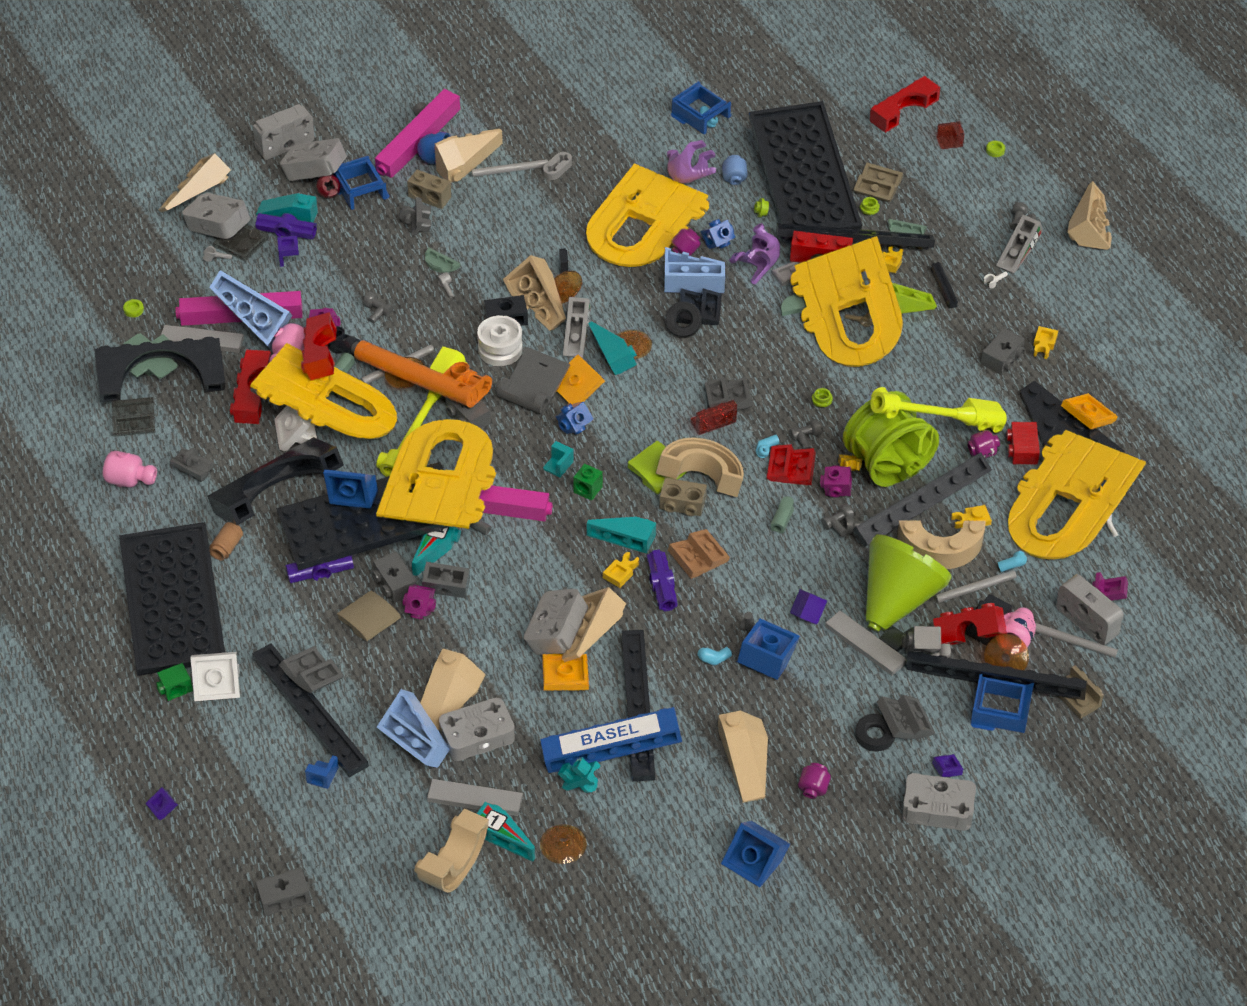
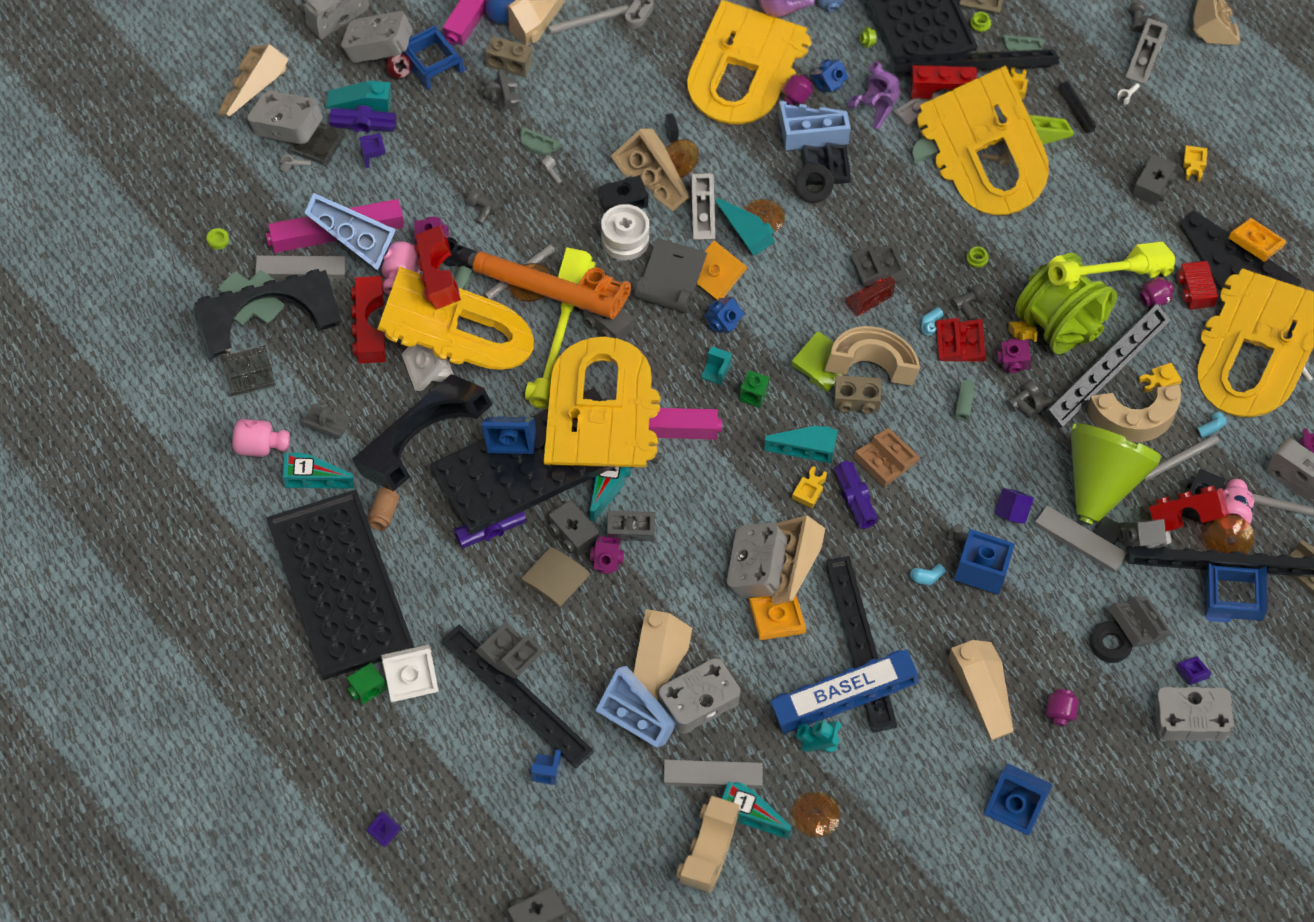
camera: 10 degrees left, 10 degrees up
(169, 504) = (311, 472): none -> teal slope

